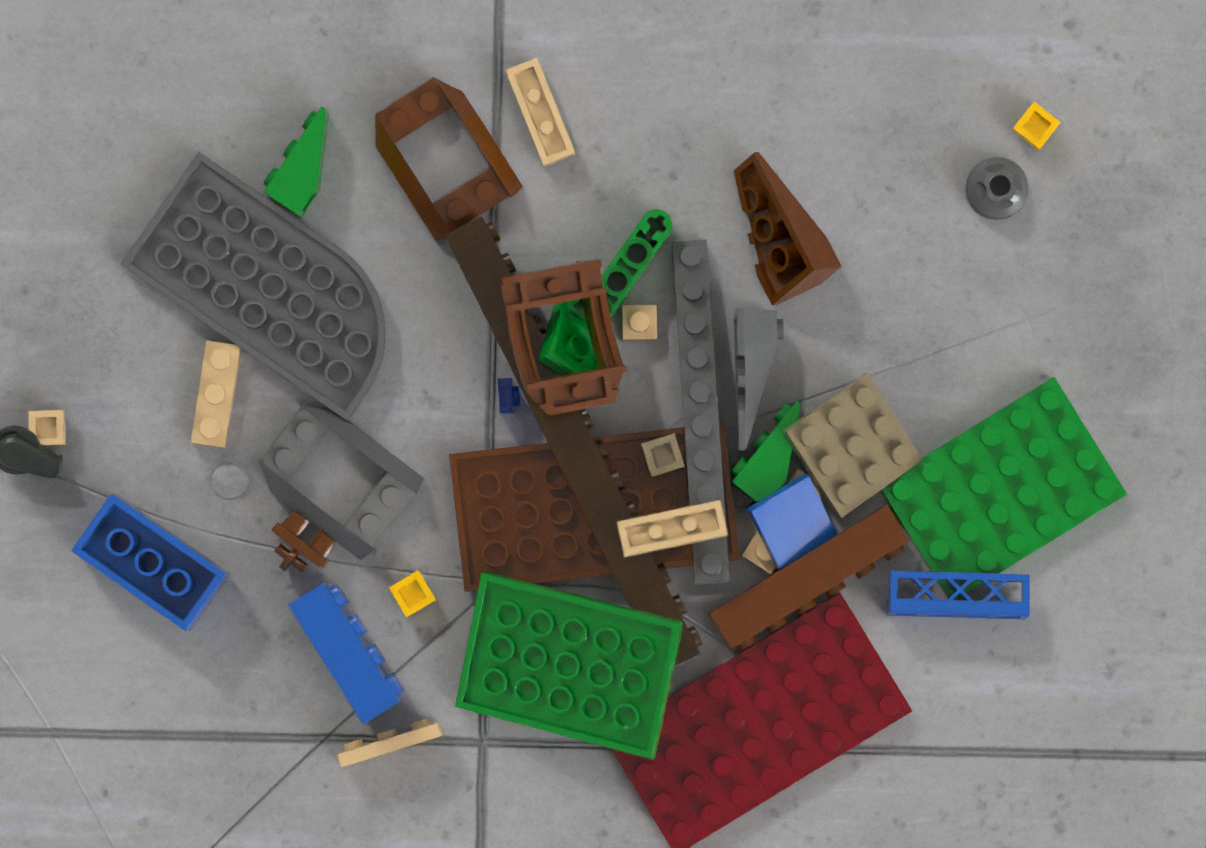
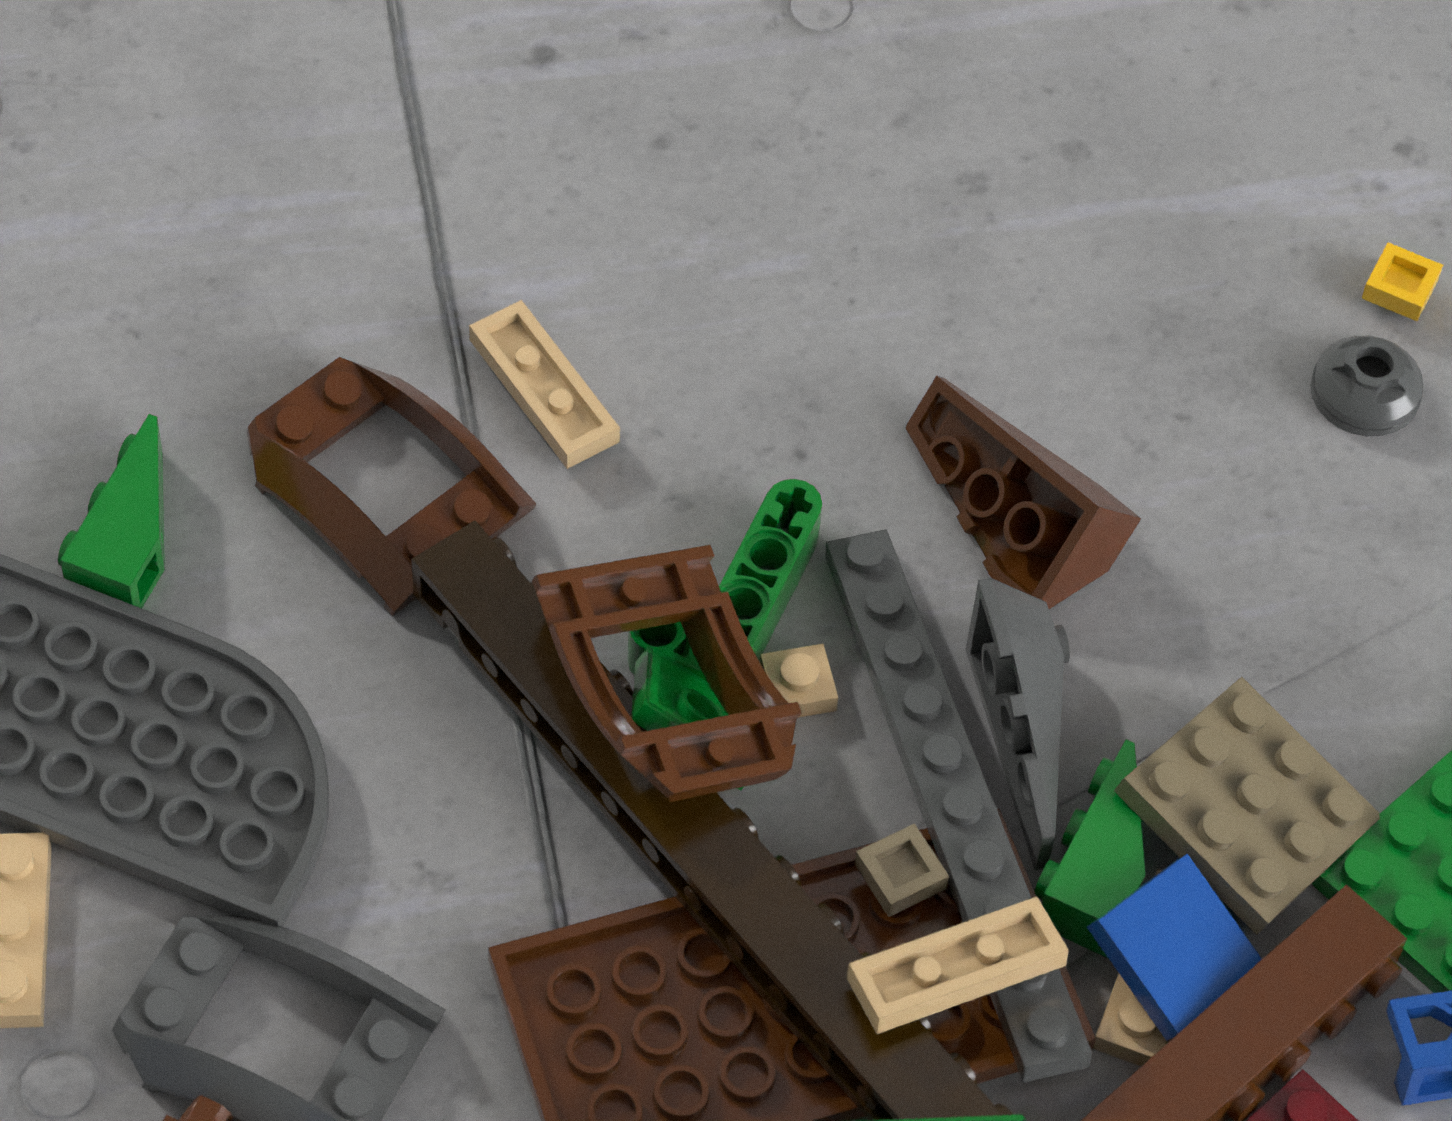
camera: 15 degrees left, 30 degrees down
(508, 396) = (581, 833): clear blue plate -> none

